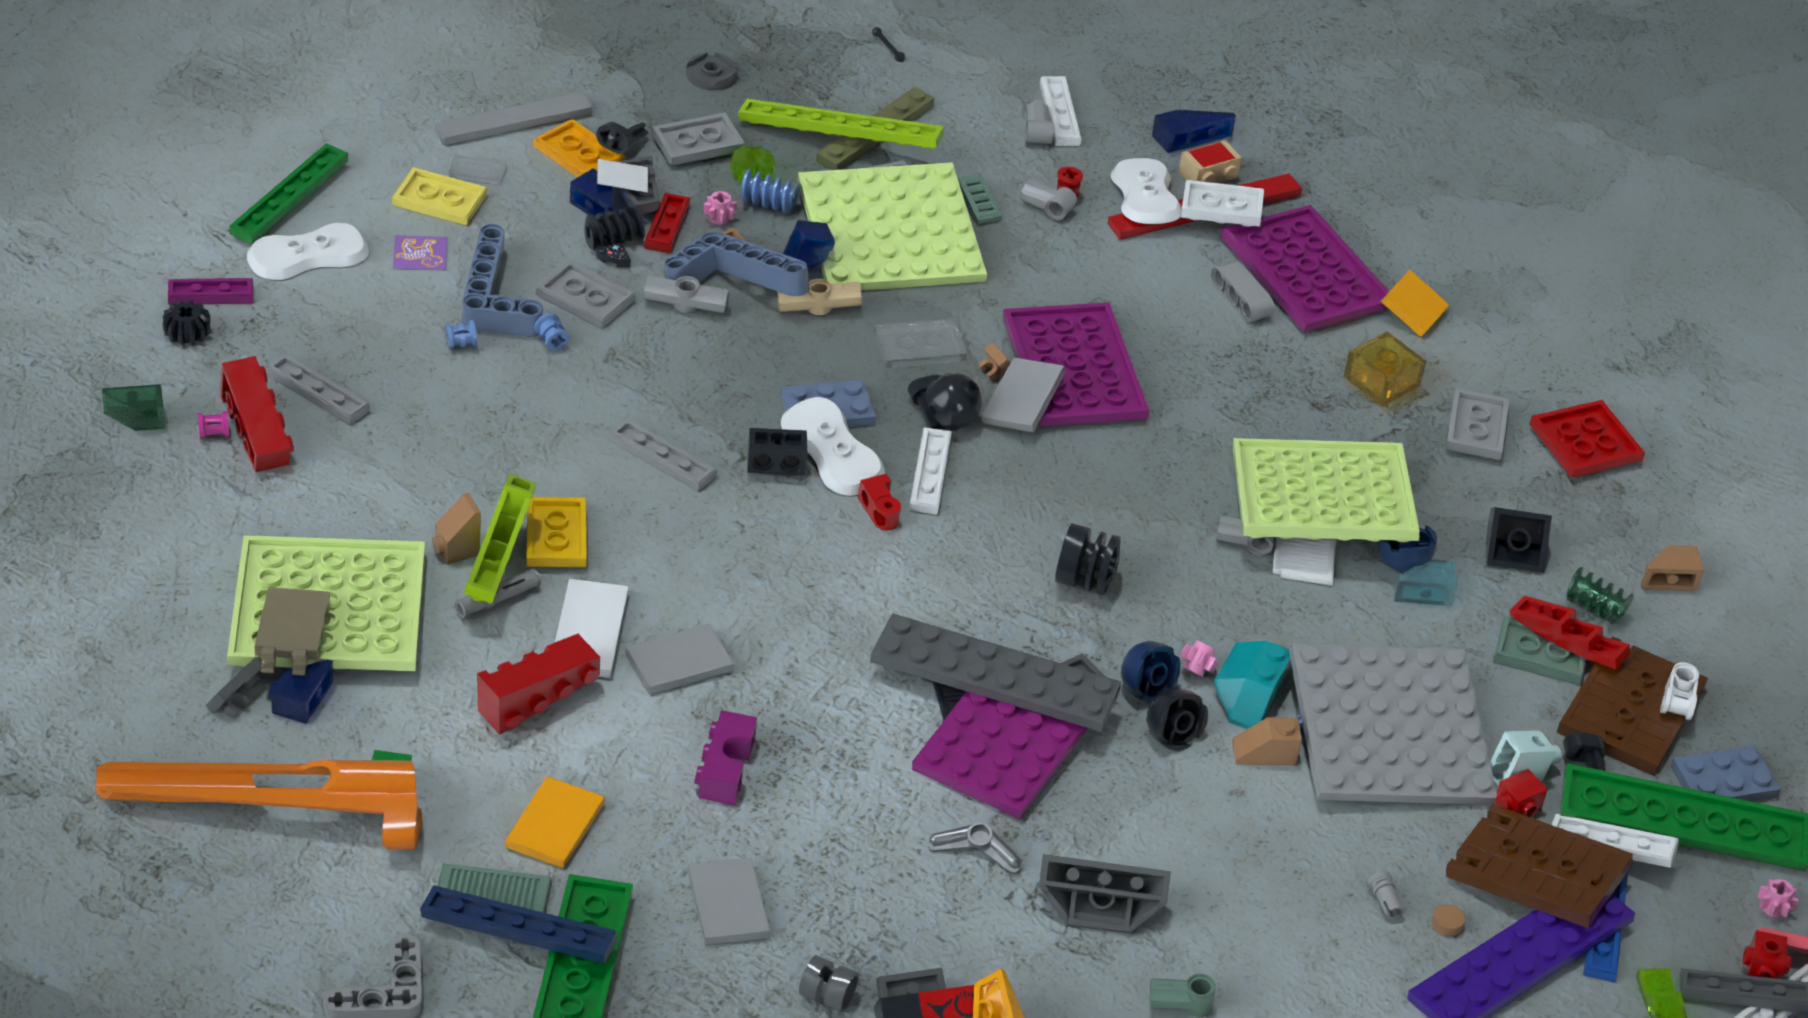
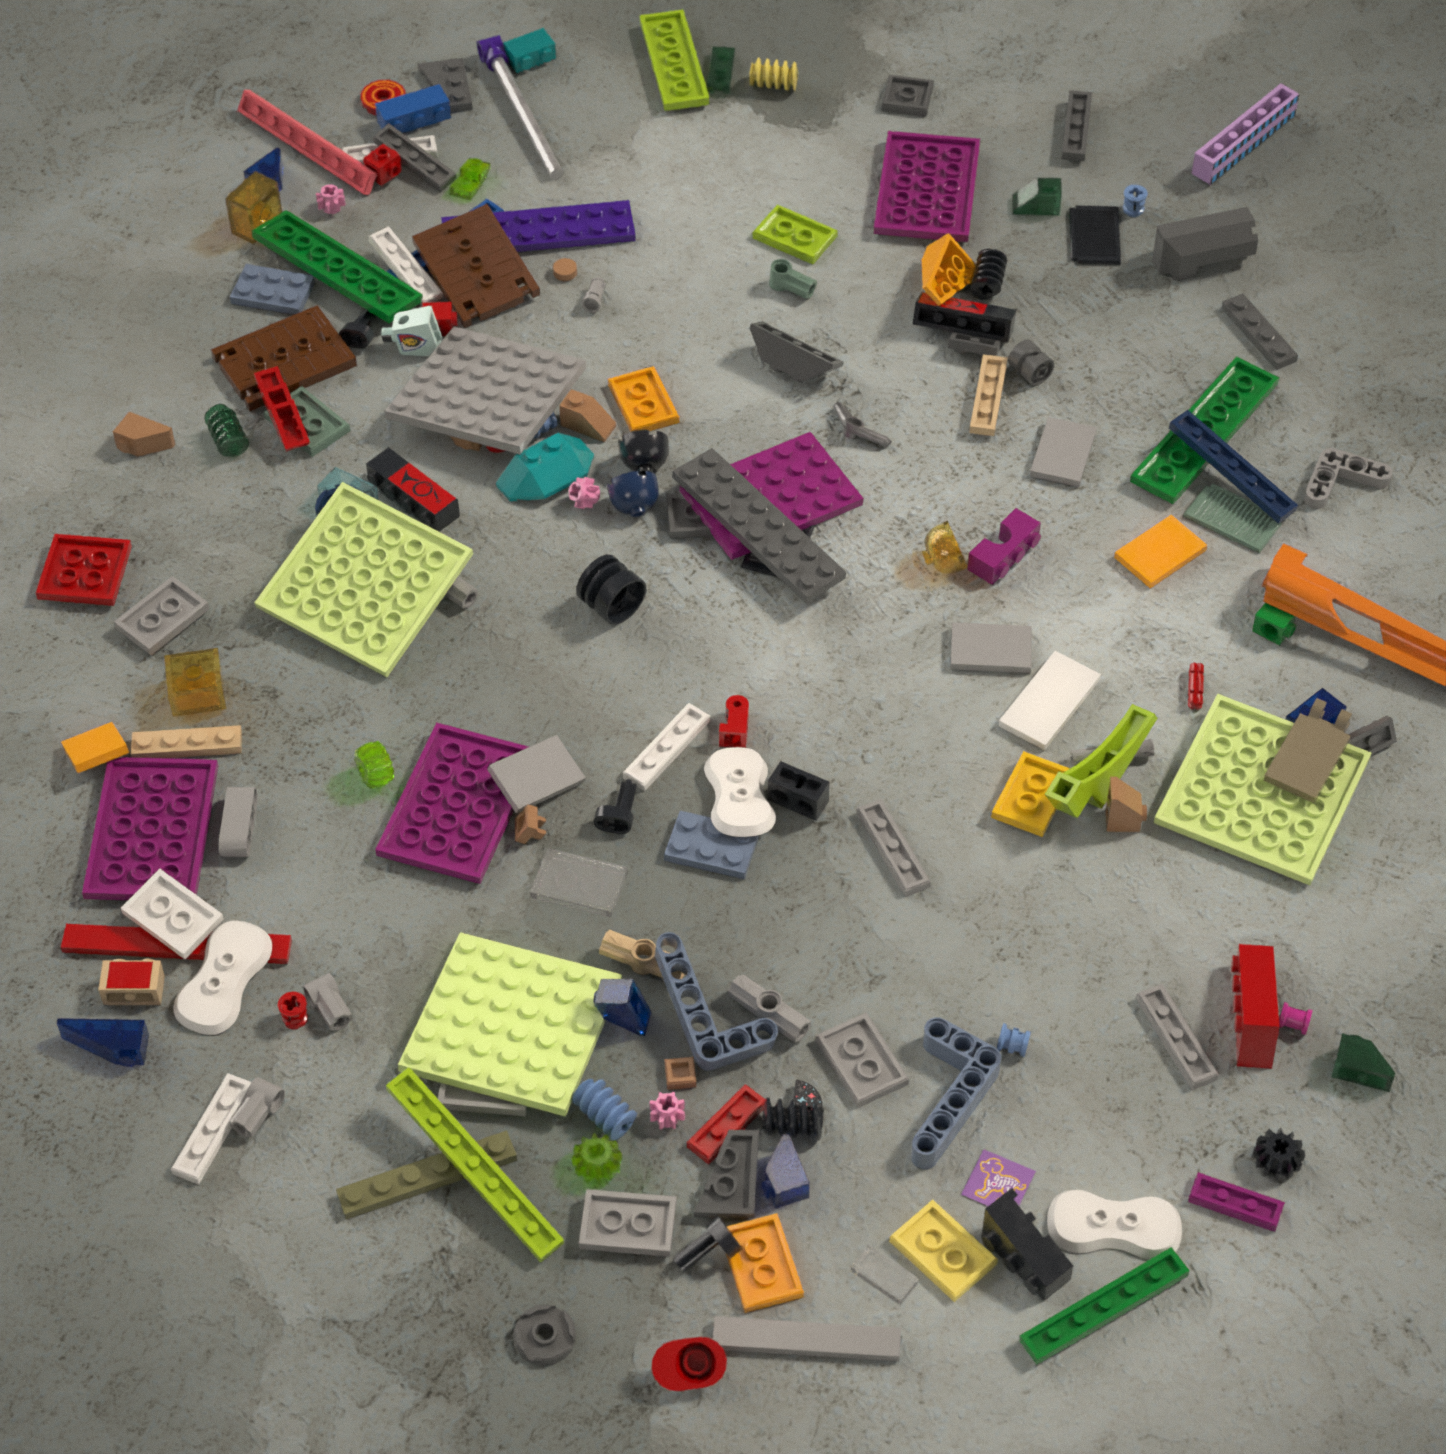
camera: 145 degrees left, 10 degrees up
(374, 199) = (1024, 1248): none -> black wedge
(445, 689) = (1196, 686): none -> red axle
(535, 682) = (1128, 642): red wedge -> none
(551, 331) = (920, 1013): medium blue bush -> none
(589, 73) = (689, 1363): none -> red piece
(622, 175) = (748, 1175): white sticker -> none
(784, 722) = (943, 550): none -> clear yellow cylinder
(854, 931) = (988, 395): none -> tan plate
(899, 56) = (320, 1282): black hinge -> none
(955, 400) = (605, 779): black cylinder -> none
(979, 198) = (392, 1050): sand green slope -> none
(1168, 354) = (374, 764): none -> clear neon green gear
(1229, 795) = (643, 400): none -> light orange tile
(1339, 343) = (187, 742): none -> tan plate
(1368, 607) = (412, 490): none -> black brick
(1517, 539) = (235, 503): black slope -> none
(1681, 690) = (251, 331): white piece -> none

